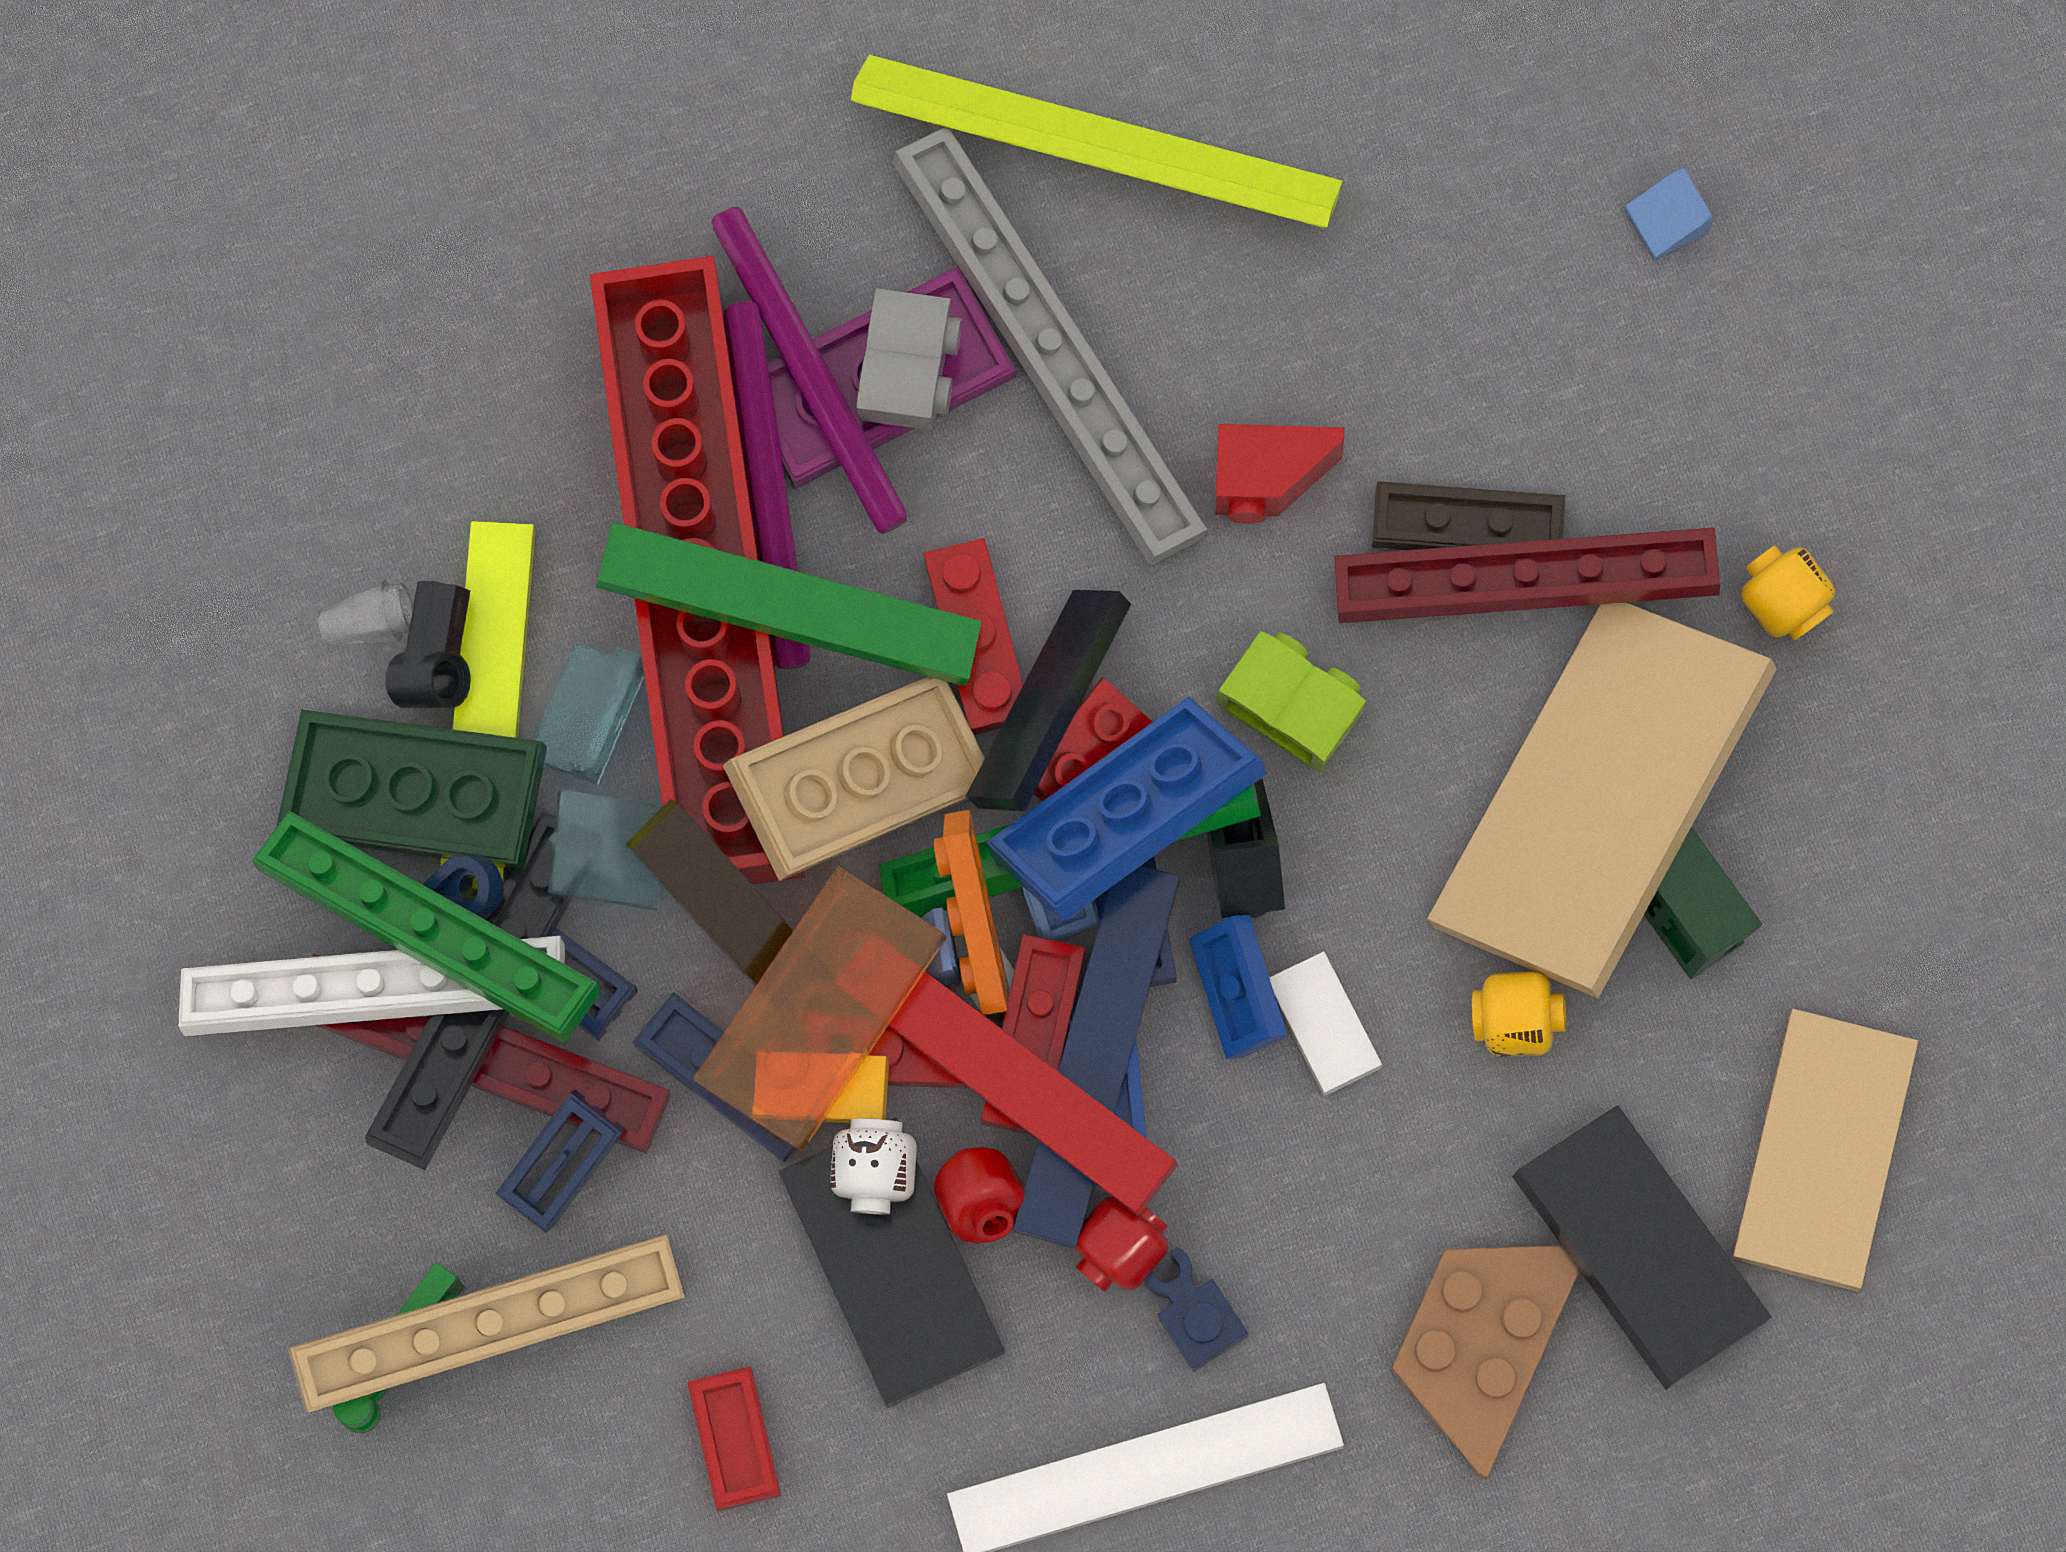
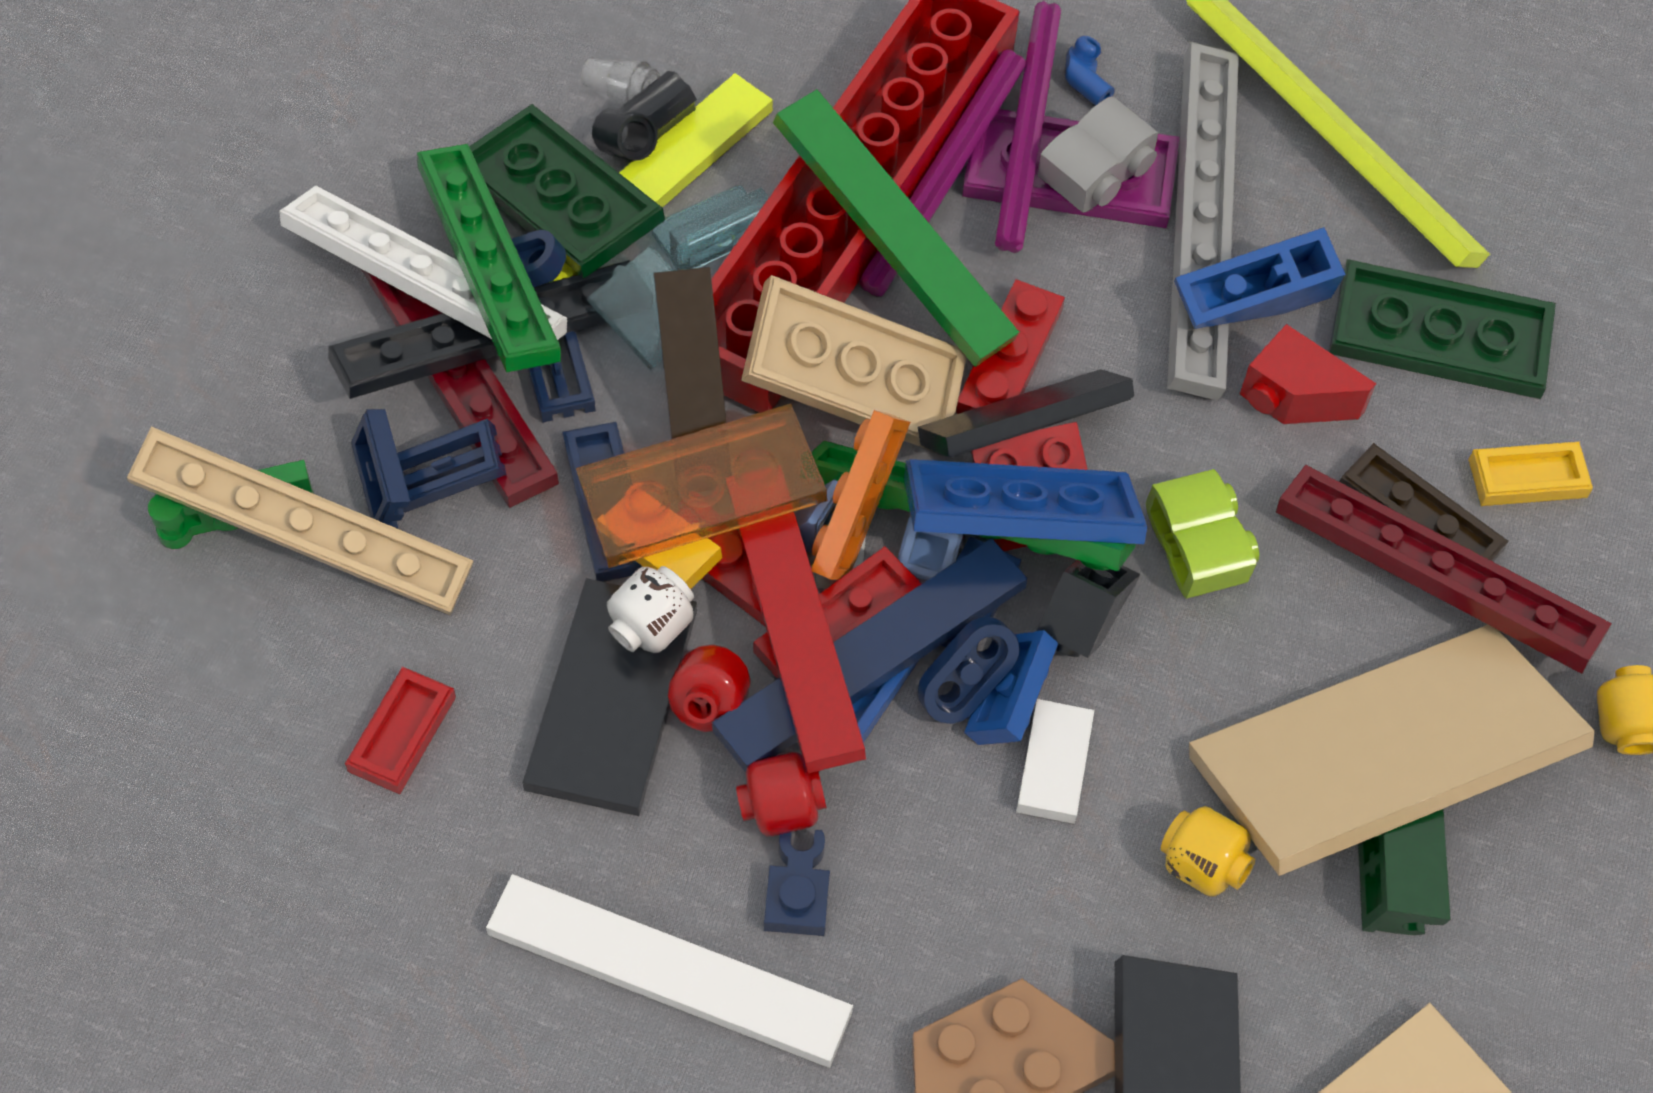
camera: 30 degrees right, 15 degrees down
(504, 1213) = (380, 468): none -> dark blue tile
(806, 258) = (1082, 68): none -> blue arm
(1161, 394) = (1263, 281): none -> blue slope
(1191, 1002) = (971, 671): none -> dark blue plate
(1353, 299) = (1443, 329): none -> dark green tile
(1536, 403) = (1530, 473): none -> yellow tile

